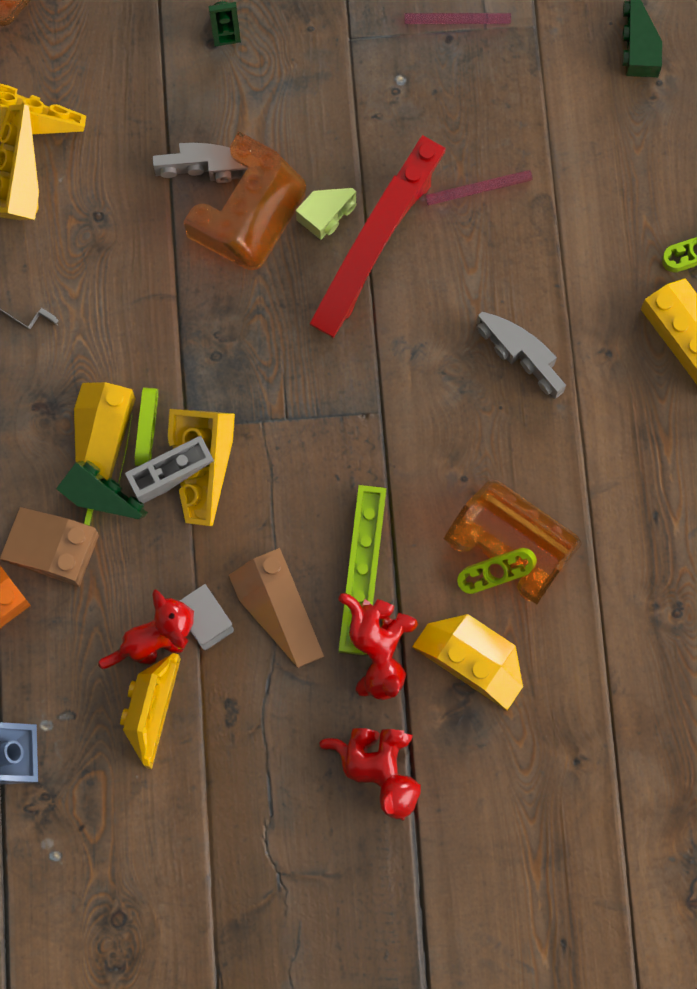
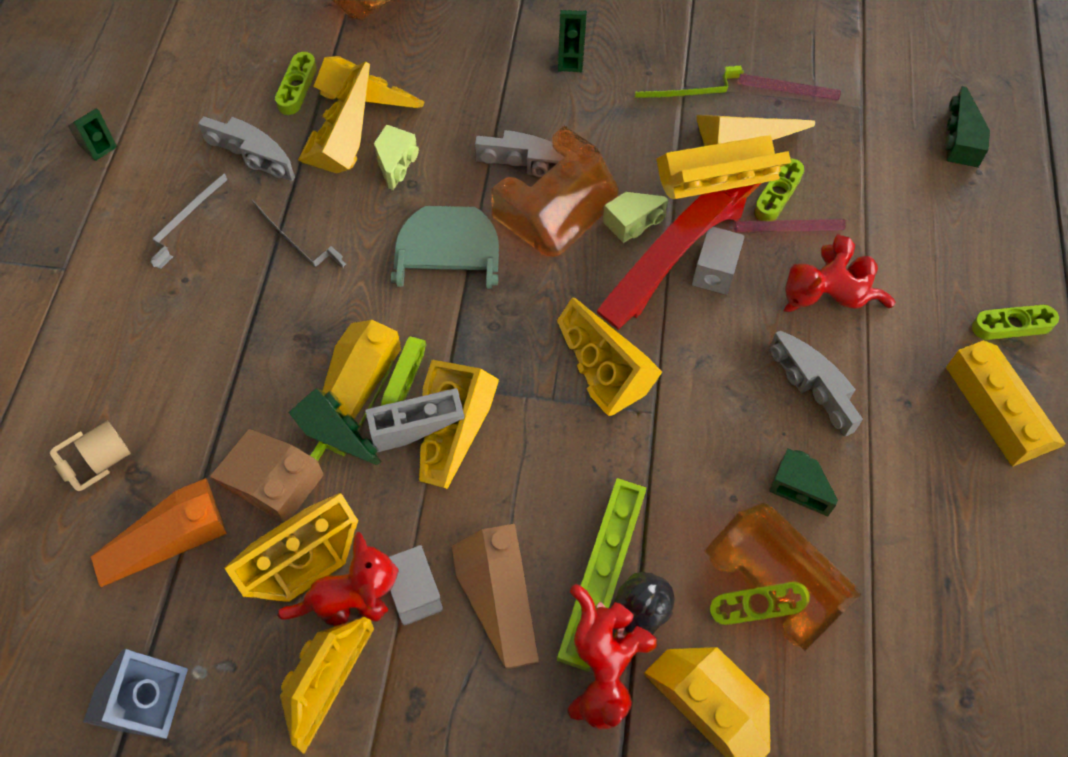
camera: 10 degrees right, 15 degrees down
(73, 188) = (394, 153): none -> yellowish green slope
(99, 609) = (296, 552): none -> yellow wedge
(149, 275) = (447, 240): none -> sand green piece
(333, 374) = (611, 364): none -> yellow wedge
(394, 13) = (731, 72): none -> lime piece
(399, 160) = (720, 167): none -> yellow brick
(405, 585) = (649, 598): none -> black hair
(414, 92) = (727, 129): none -> yellow wedge
(414, 245) = (718, 260): none -> light grey piece
(461, 137) = (779, 200): none -> lime beam
(501, 257) = (846, 286): none -> red animal
(521, 453) = (803, 482): none -> dark green slope

